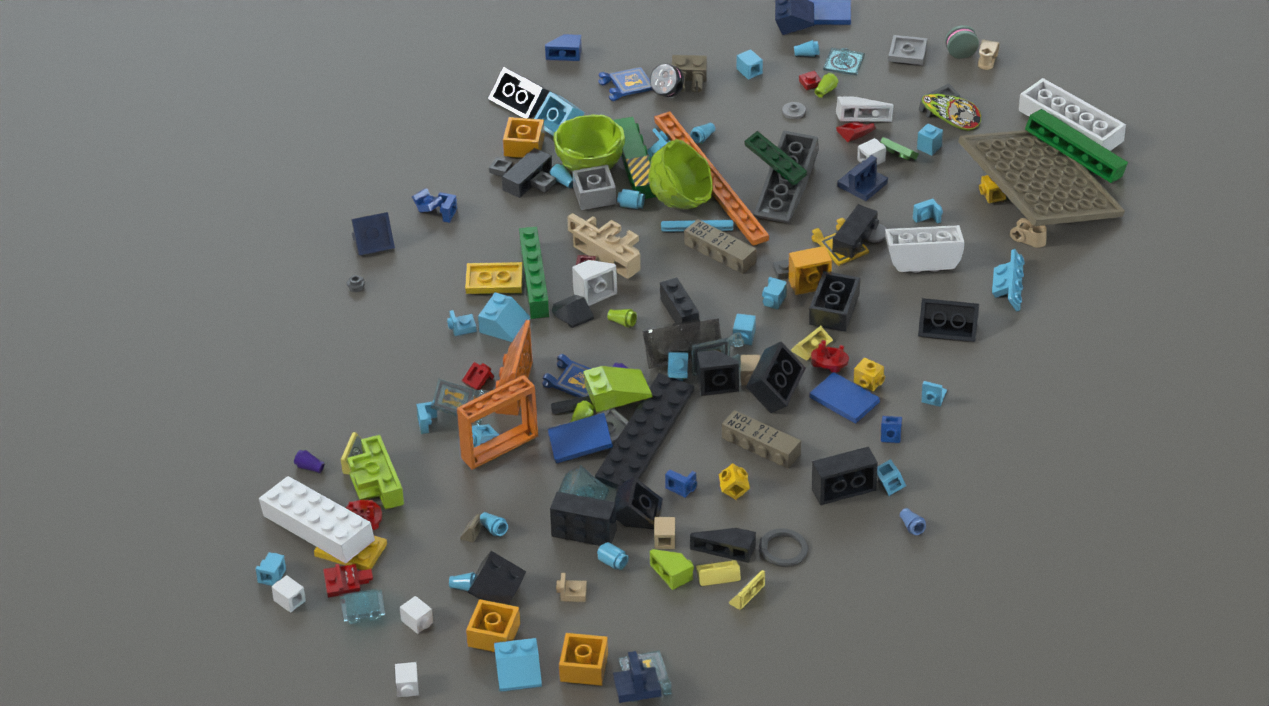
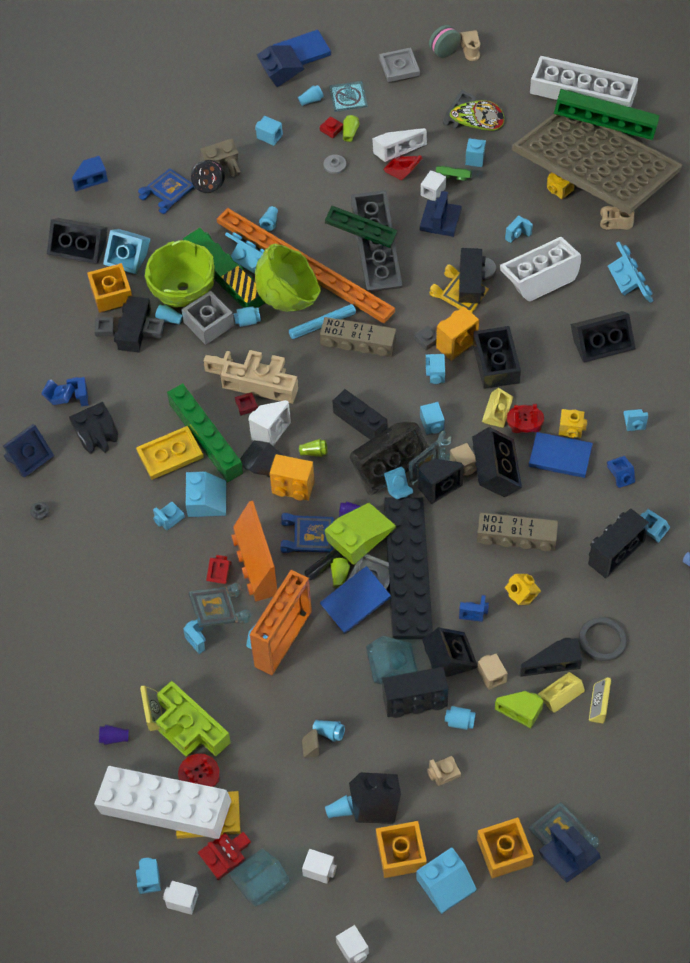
camera: 25 degrees left, 15 degrees up
(442, 238) = (94, 427): none -> black plate
(585, 328) = (292, 477): none -> light orange brick

